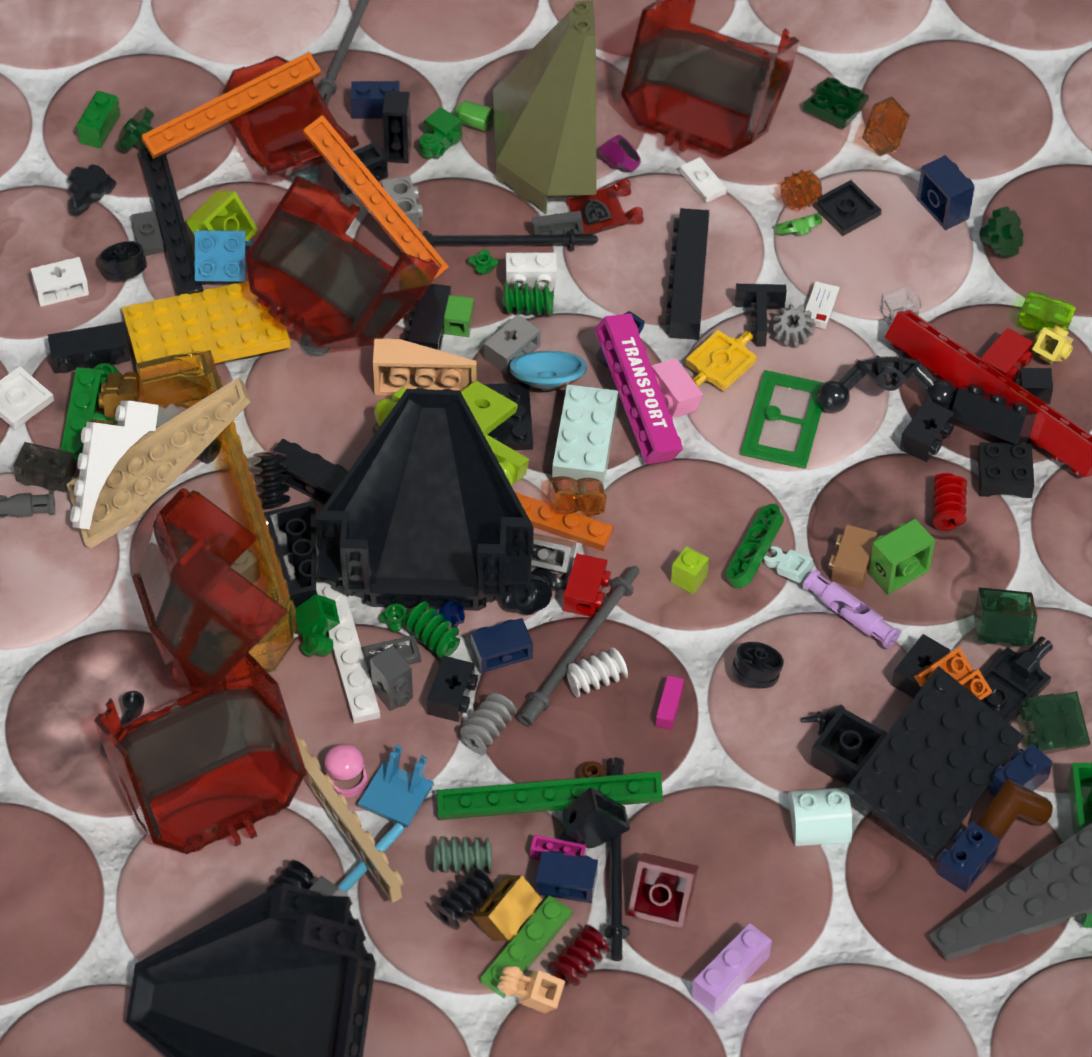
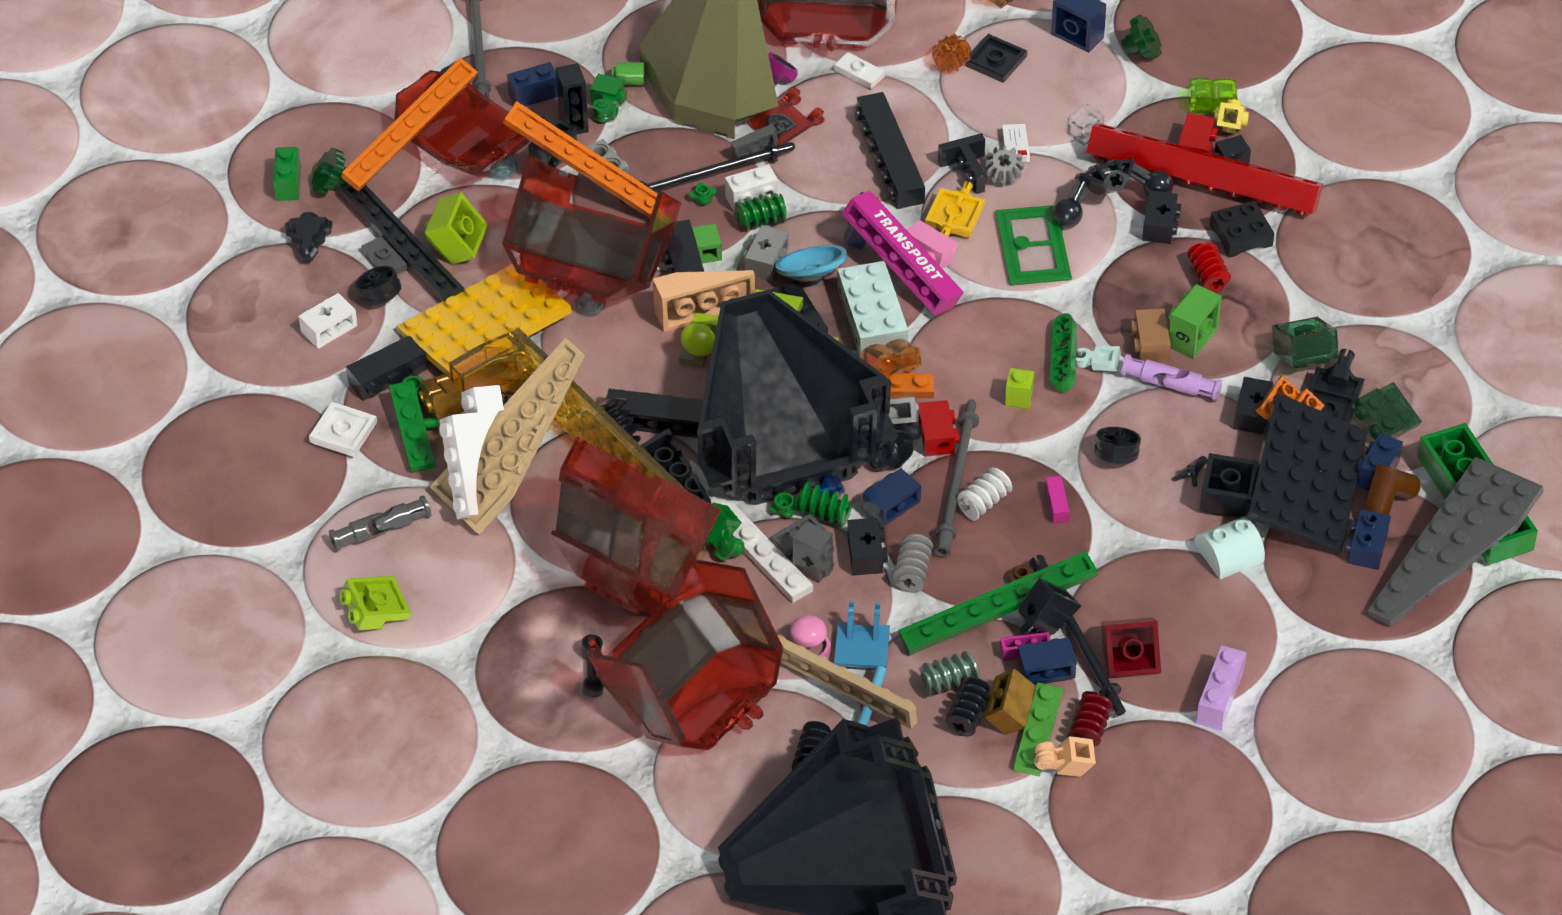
camera: 20 degrees left, 5 degrees down
(44, 467) = (402, 478): clear smoke brick -> none
(220, 255) = (470, 253): dark azure plate -> none
(799, 225) = (964, 83): bright green plate -> none
(993, 414) = (1212, 184): black brick -> none

